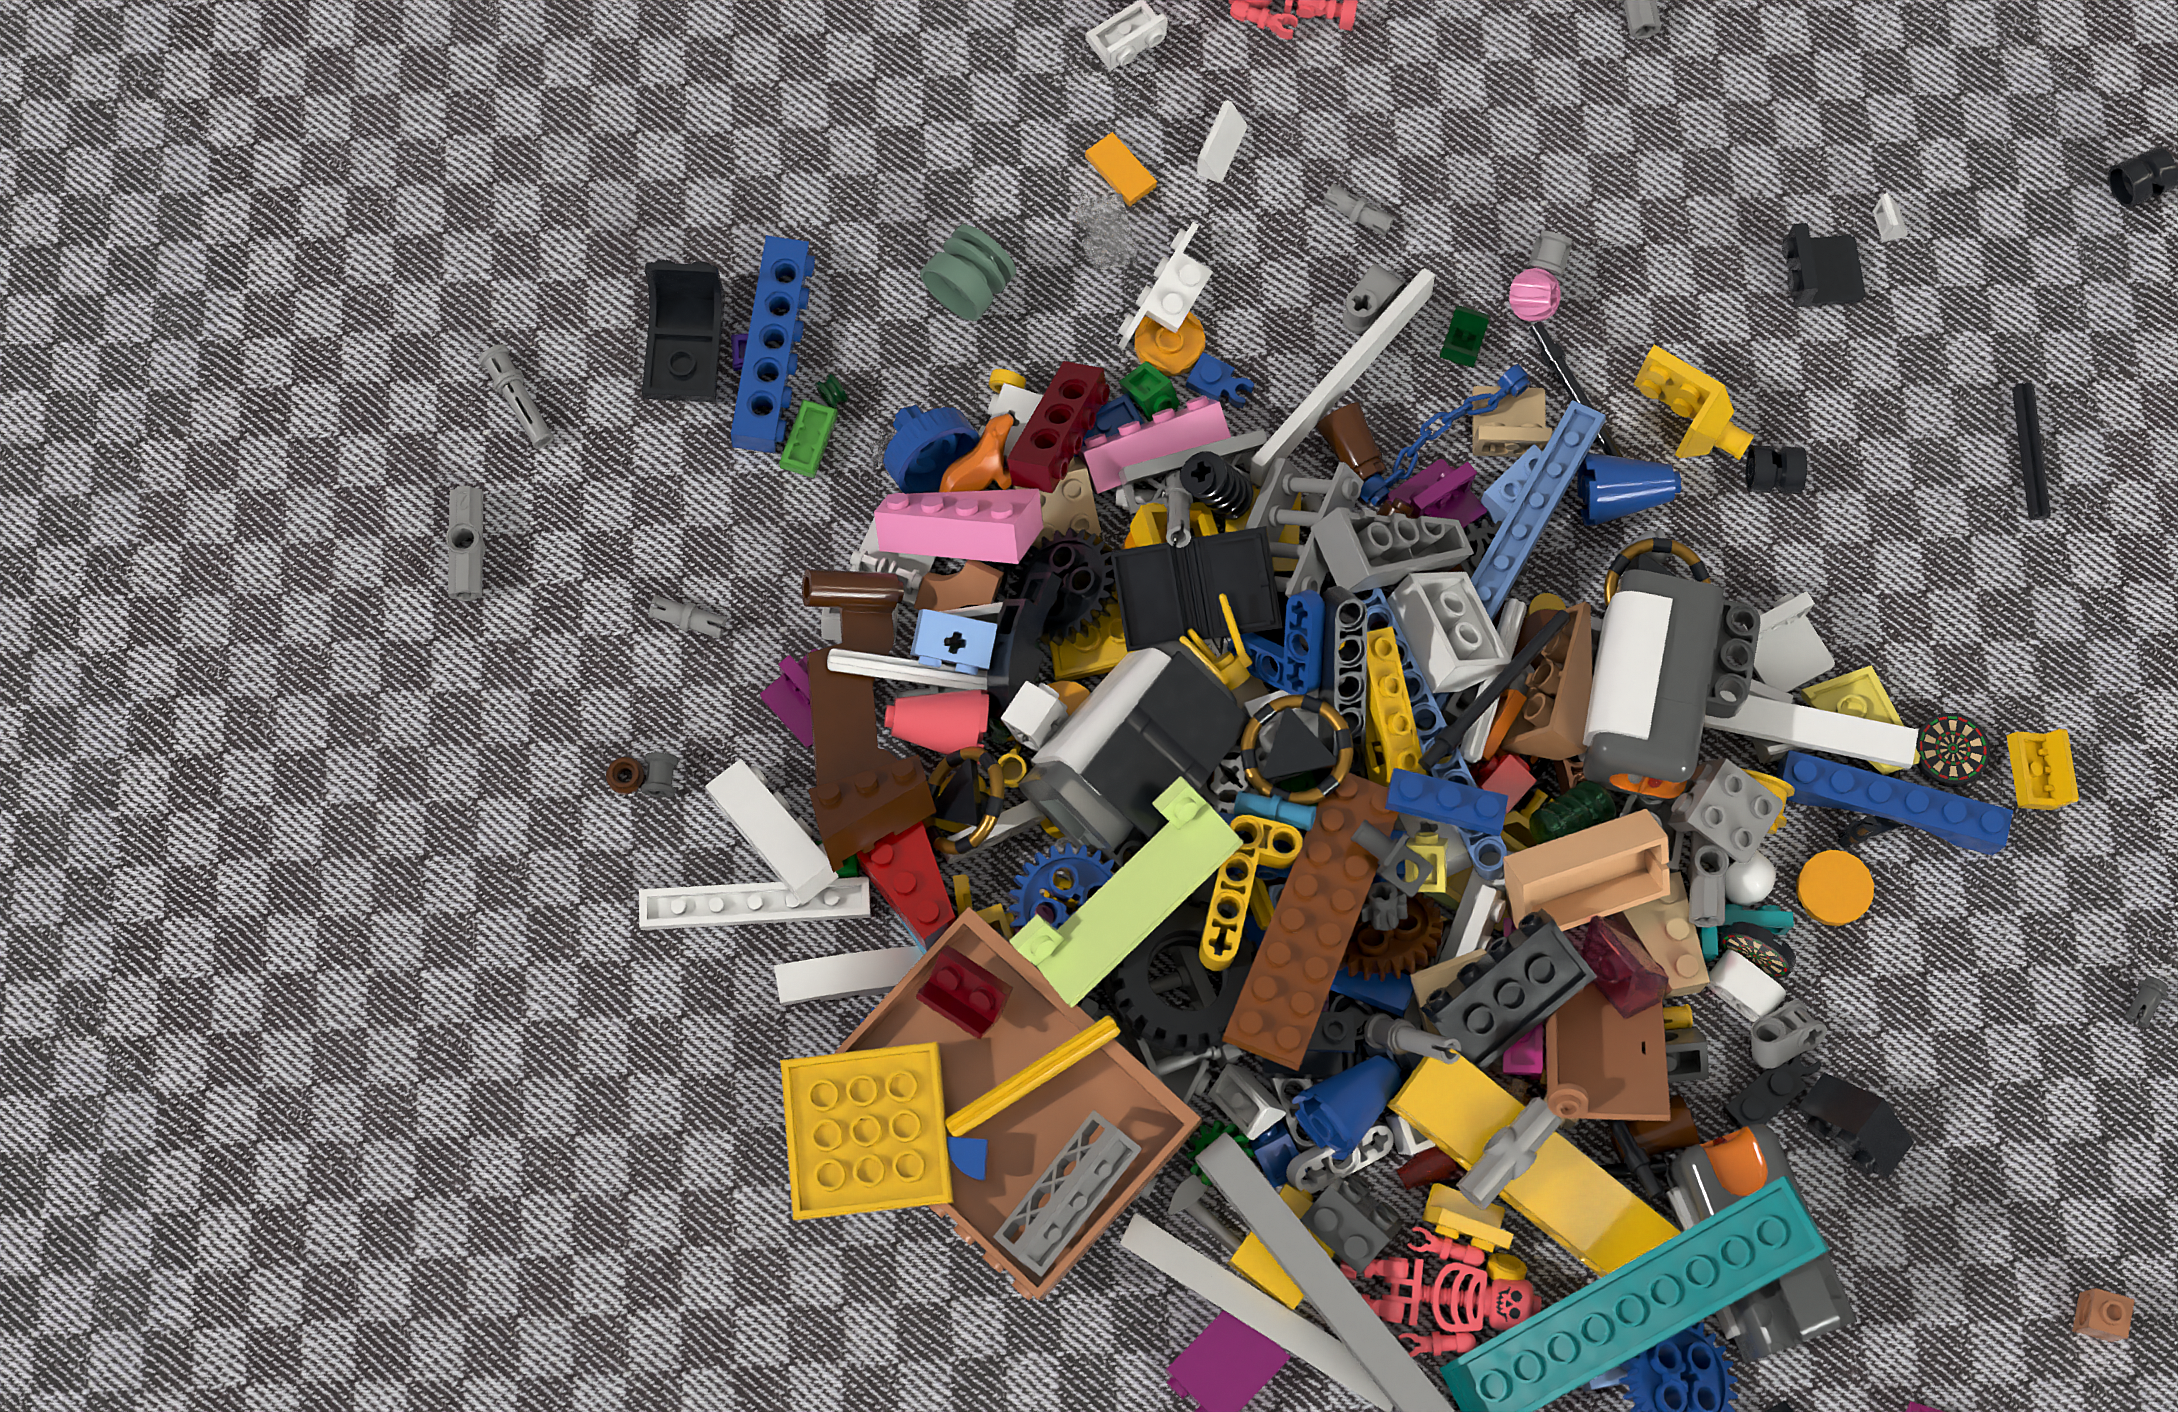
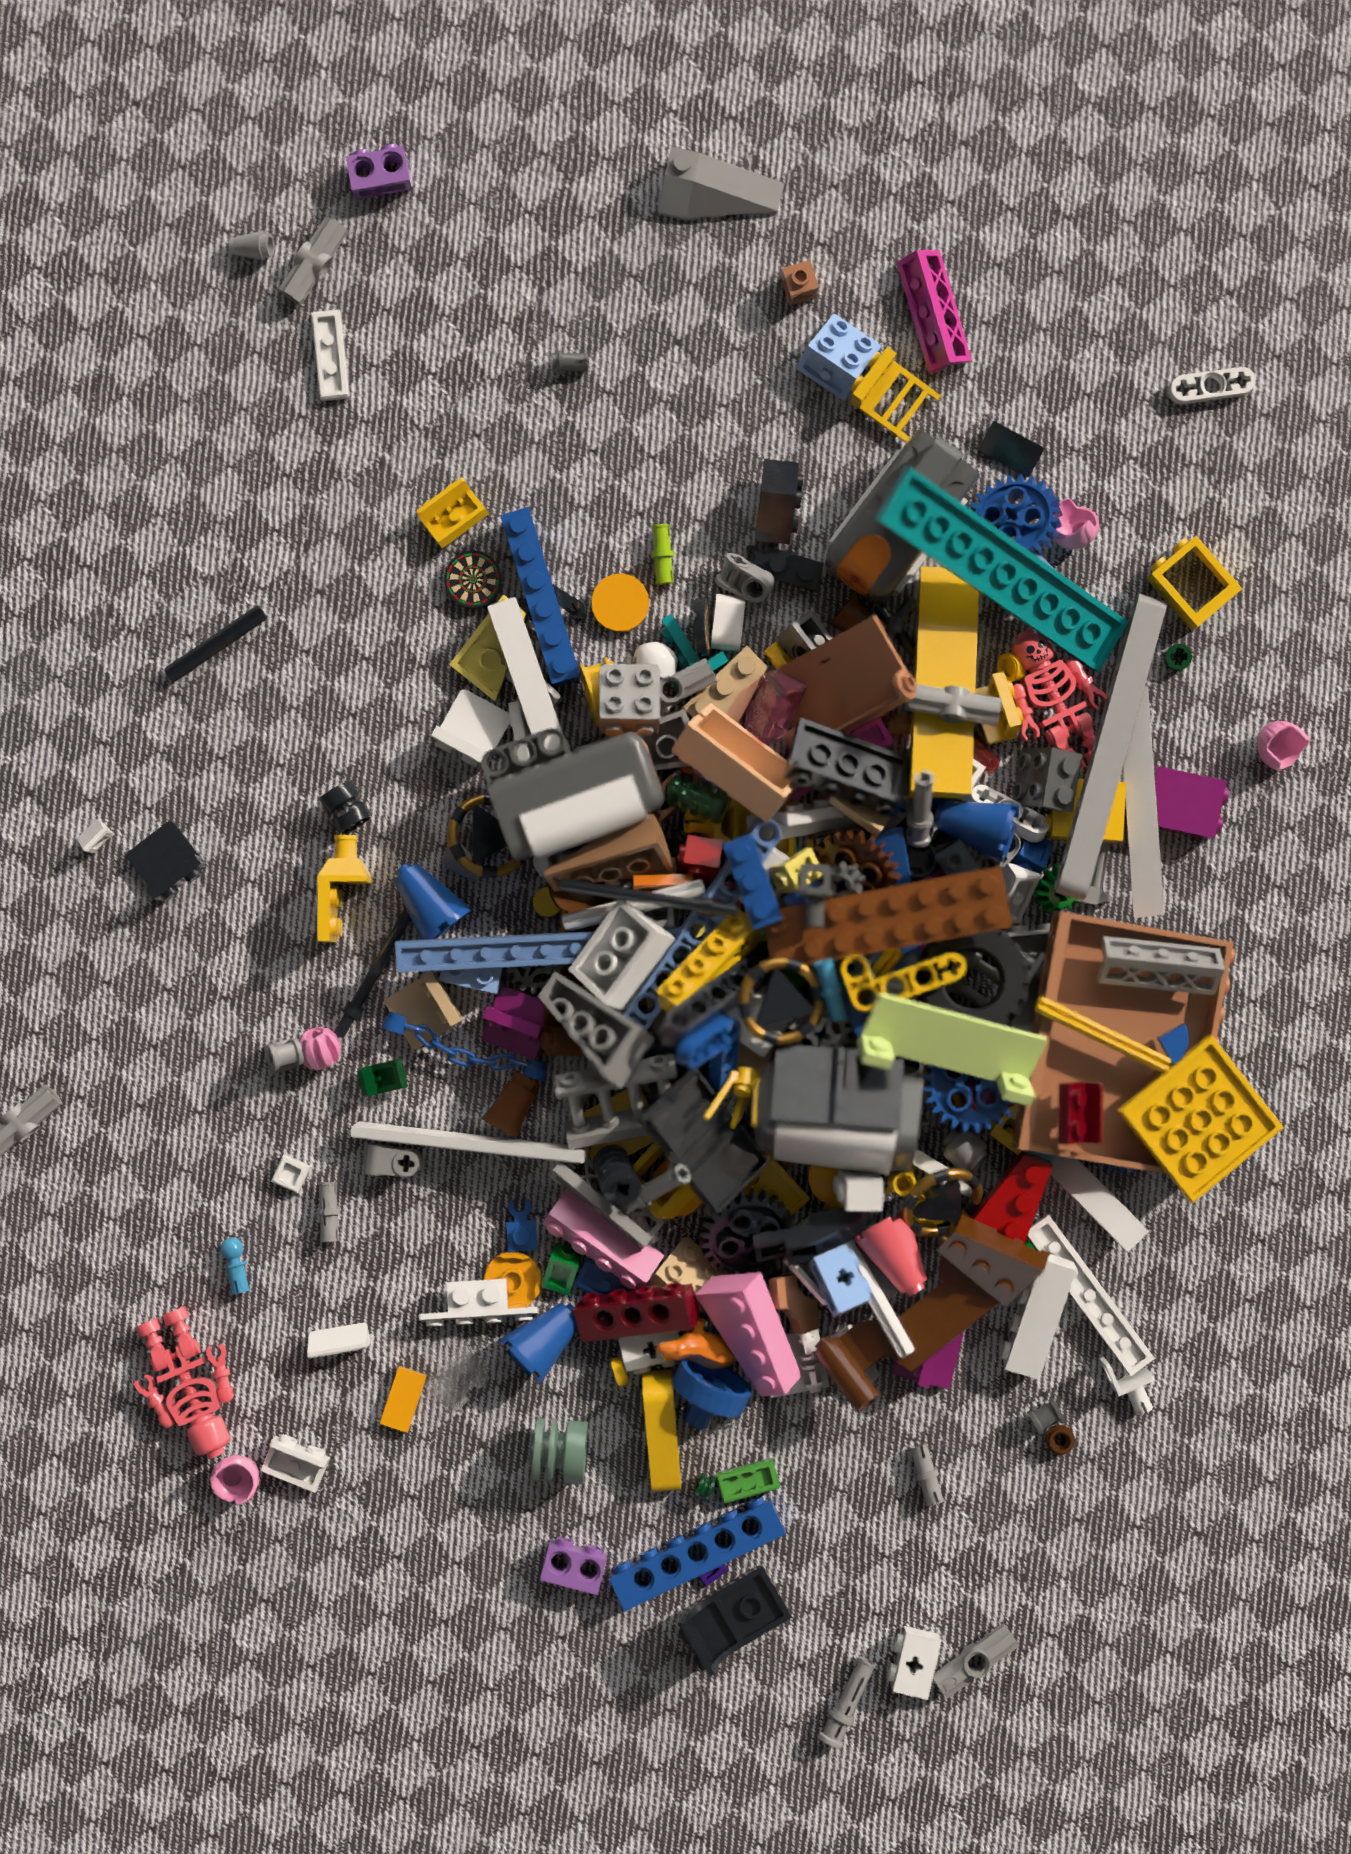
camera: 120 degrees left, 15 degrees up
(517, 501) = (914, 1680): none -> white brick
(628, 885) = (1131, 1385): none -> white bracket
(836, 217) = (572, 1574): none -> medium lavender brick
(918, 379) = (661, 1430): none -> yellow beam
(962, 893) = (996, 1162): yellow tile -> none
(996, 869) = (965, 1150): none -> light grey head
(1091, 321) = (541, 1340): none -> blue cone
(1378, 100) = (232, 1250): none -> dark azure pin
(1420, 200) = (291, 1173): none -> white tile
(1865, 965) = (662, 554): none -> lime pin
(1932, 1329) = (871, 389): none -> yellow plate
(1990, 1307) = (837, 356): none -> light blue bracket

